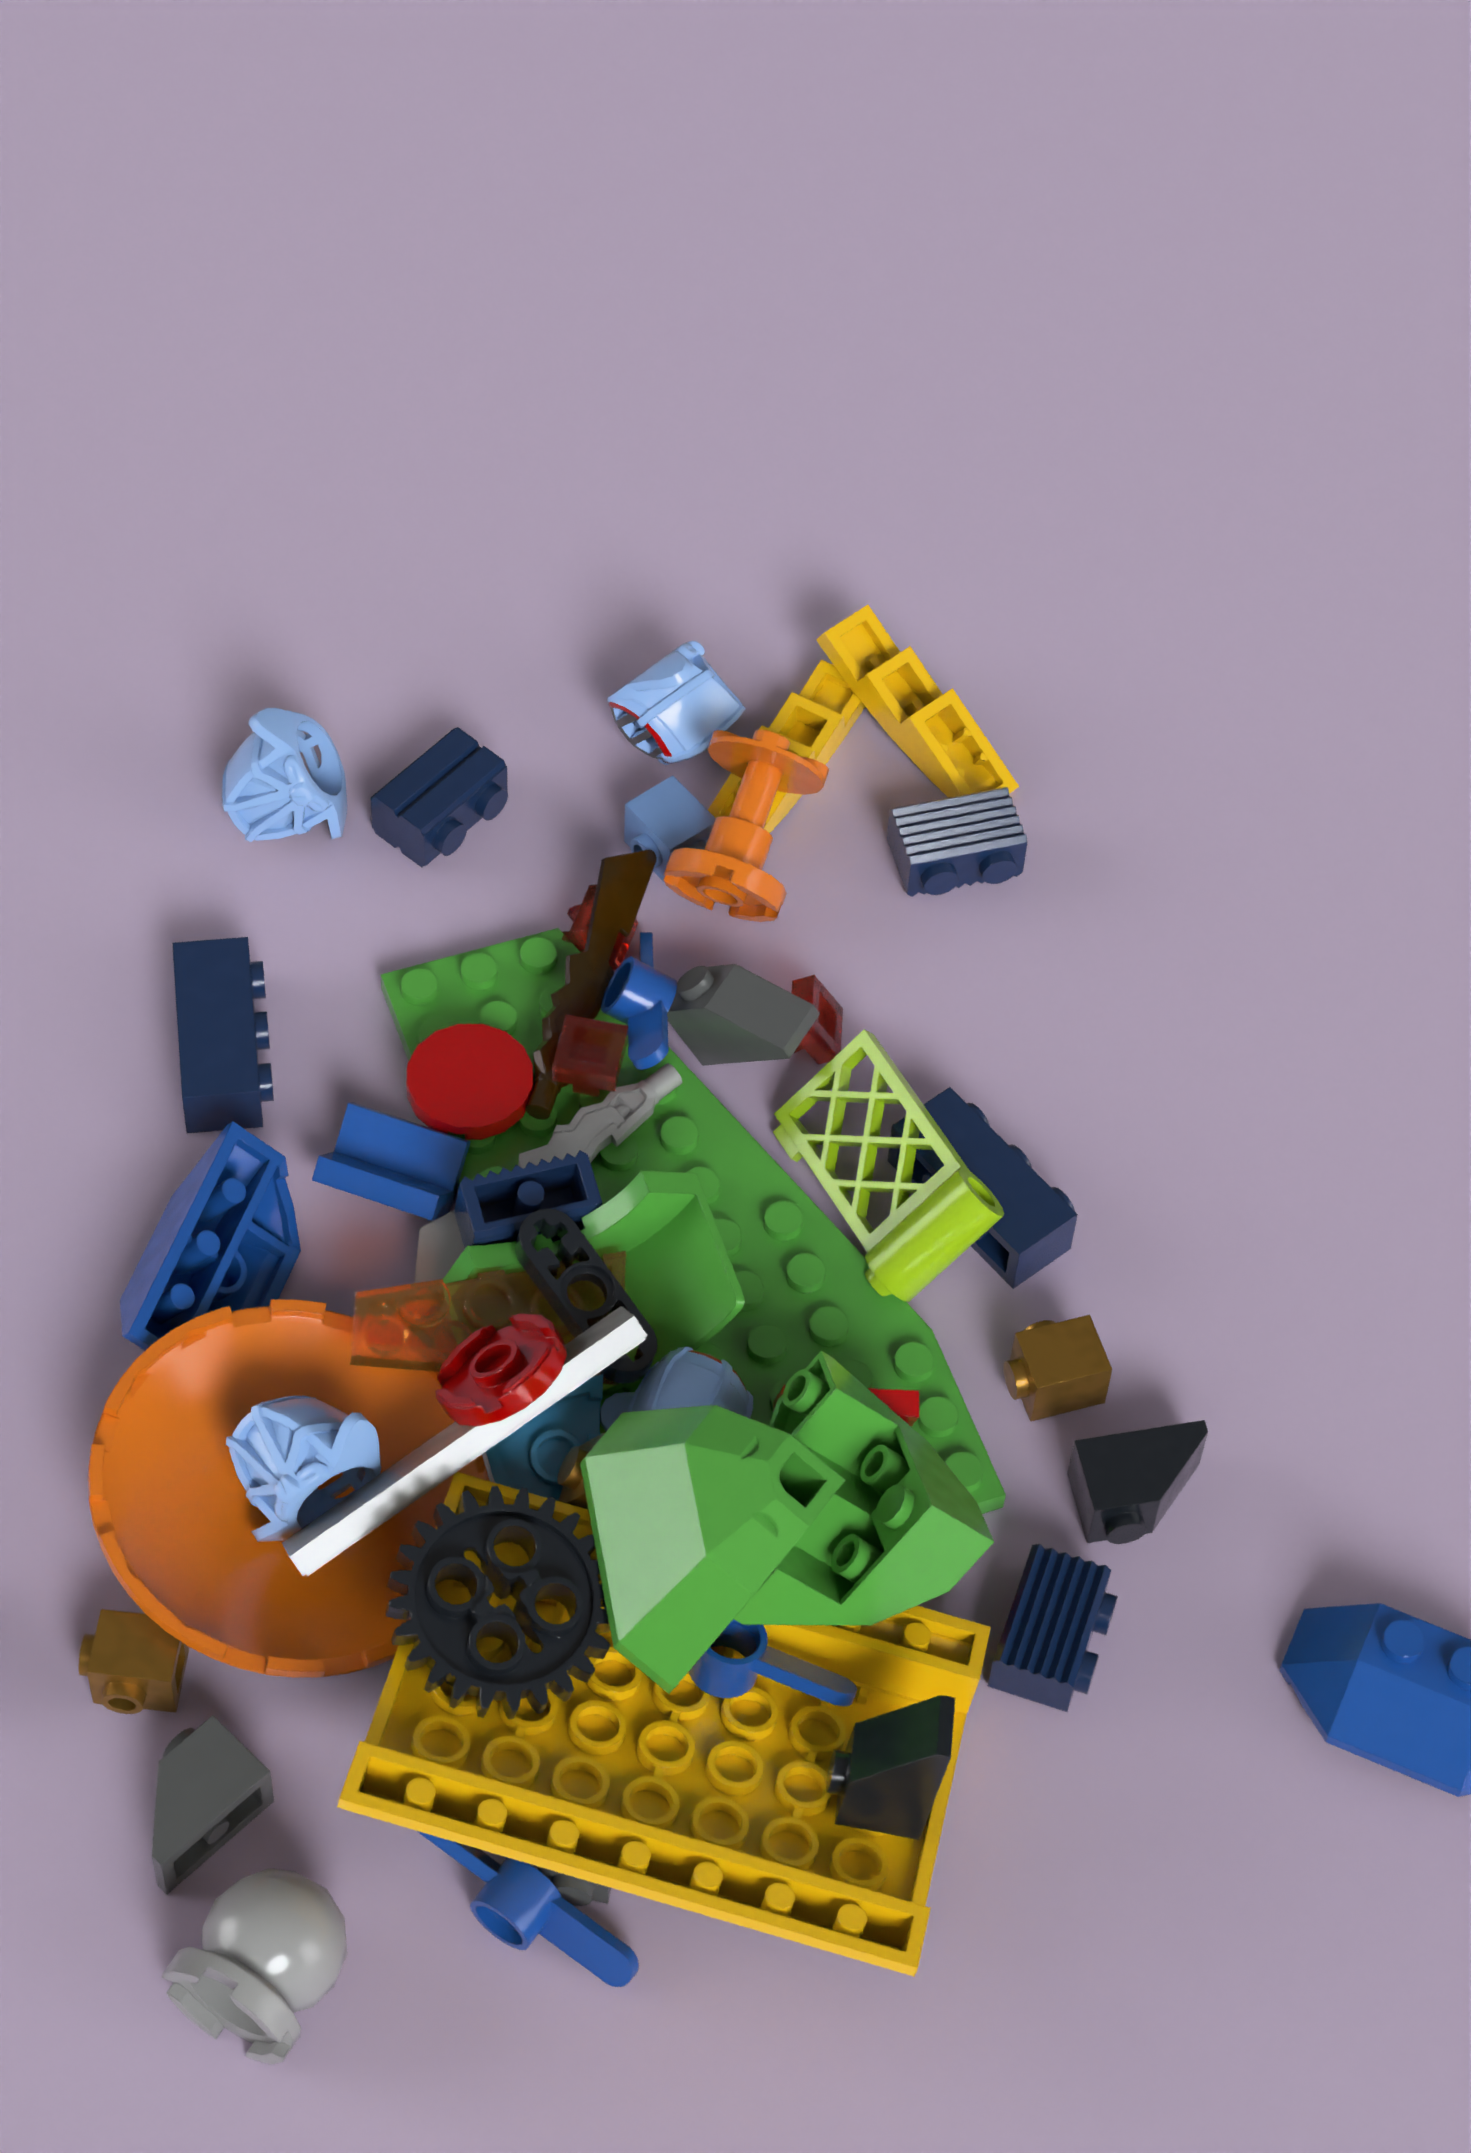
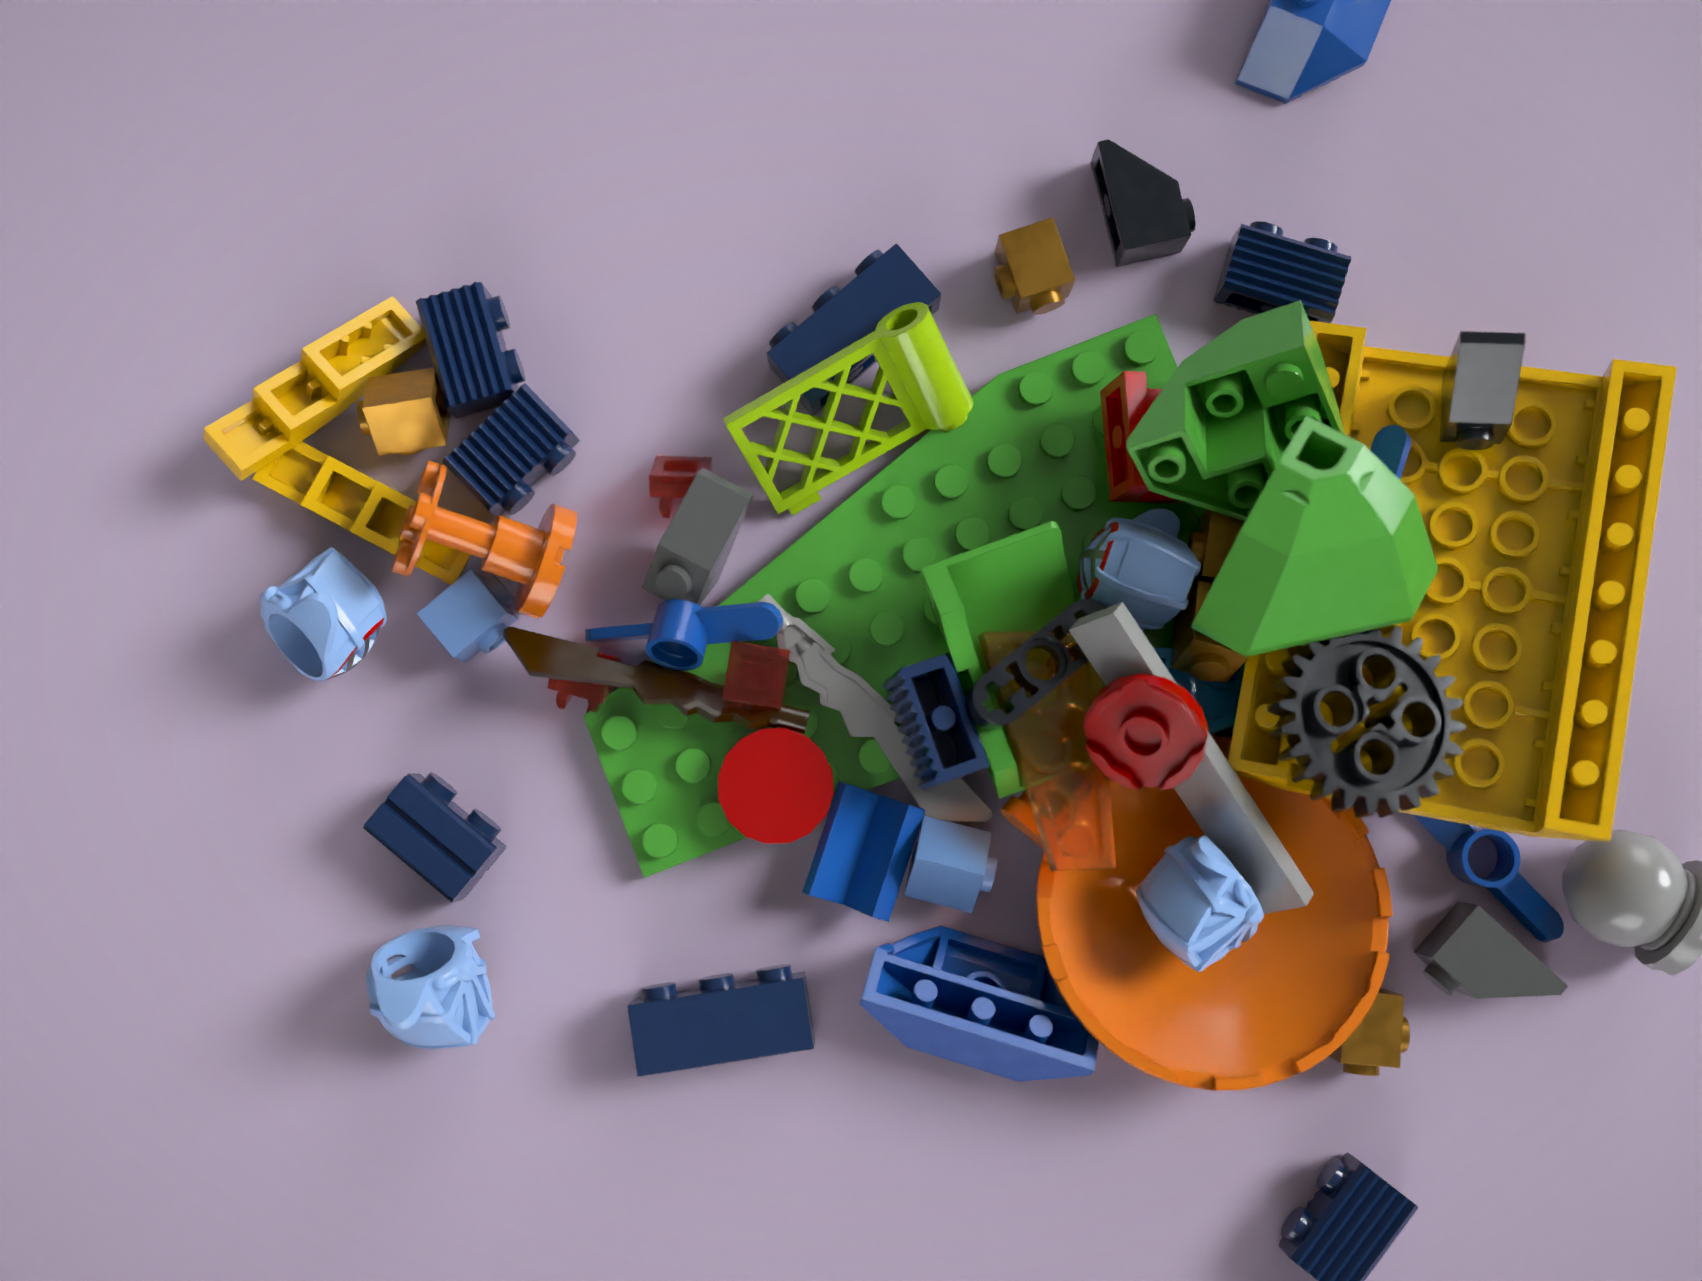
camera: 85 degrees left, 30 degrees up
(295, 1838) = (1503, 881): none -> blue piece
(369, 1240) = (950, 864): none -> medium blue brick
(846, 874) = (512, 452): none -> dark blue brick
(886, 775) = (404, 412): none -> pearl gold brick

